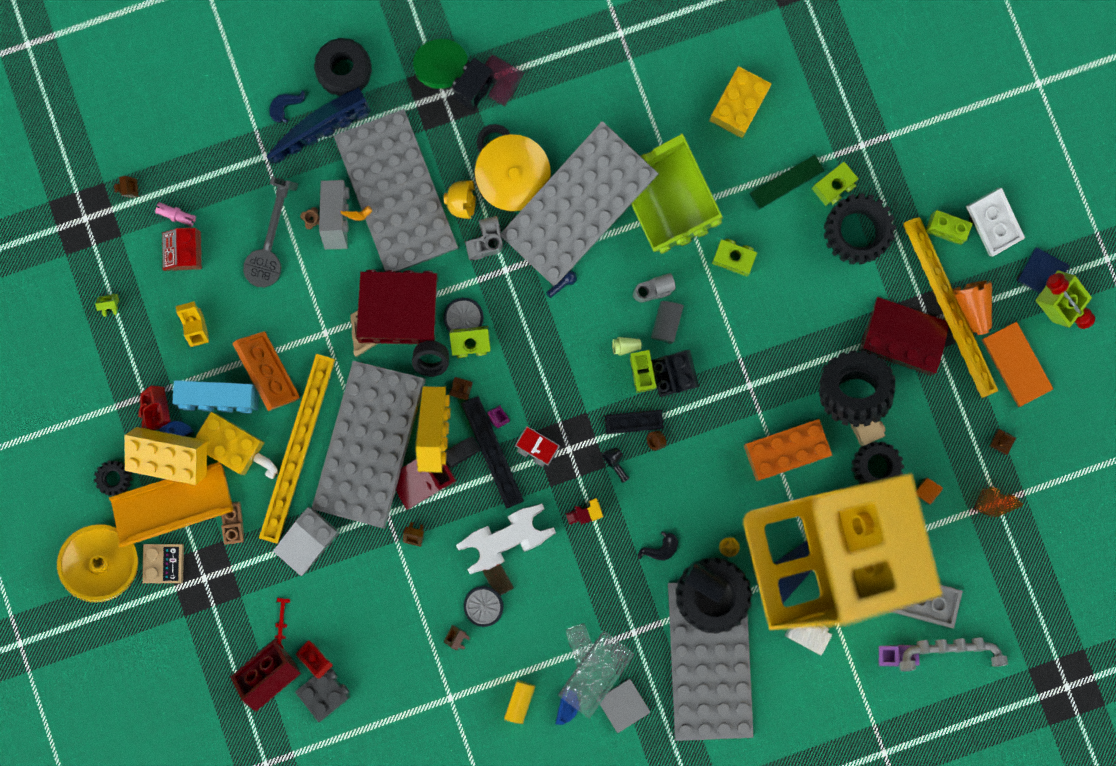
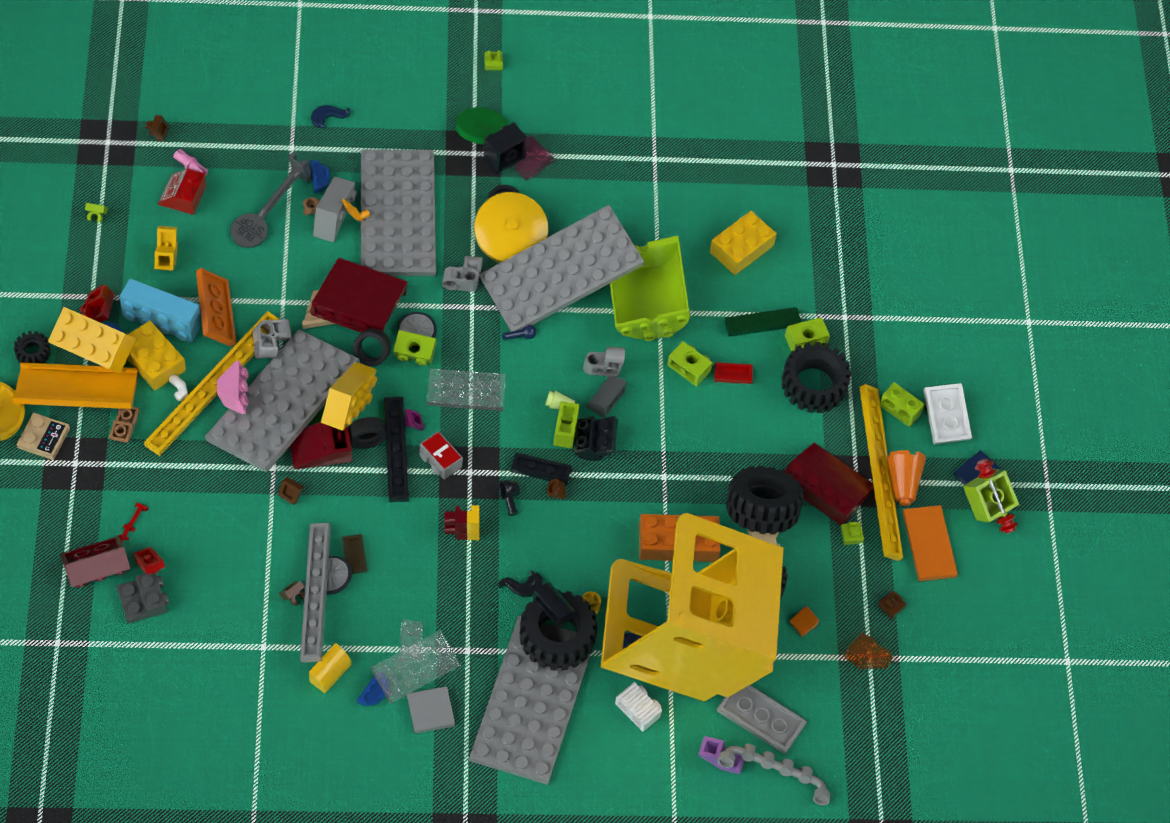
camera: 10 degrees right, 25 degrees down
(305, 180) = (320, 176): none -> blue plate
(306, 541) = (187, 460): light grey slope -> none
(318, 452) = (233, 388): none -> bright pink slope
(321, 123) = (353, 136): dark blue wedge -> none
(334, 375) = (265, 344): none -> light grey piece
(339, 50) = (391, 87): black tyre -> none
(460, 199) = (455, 231): yellow cylinder -> none
(461, 388) = (389, 386): reddish brown tile -> none
(477, 634) = (315, 593): none -> light grey tile
(519, 532) = (391, 521): white piece -> none
(534, 366) = (466, 389): none -> clear plate
(777, 249) = (733, 373): none -> red tile
(943, 381) = (852, 533): none -> lime tile

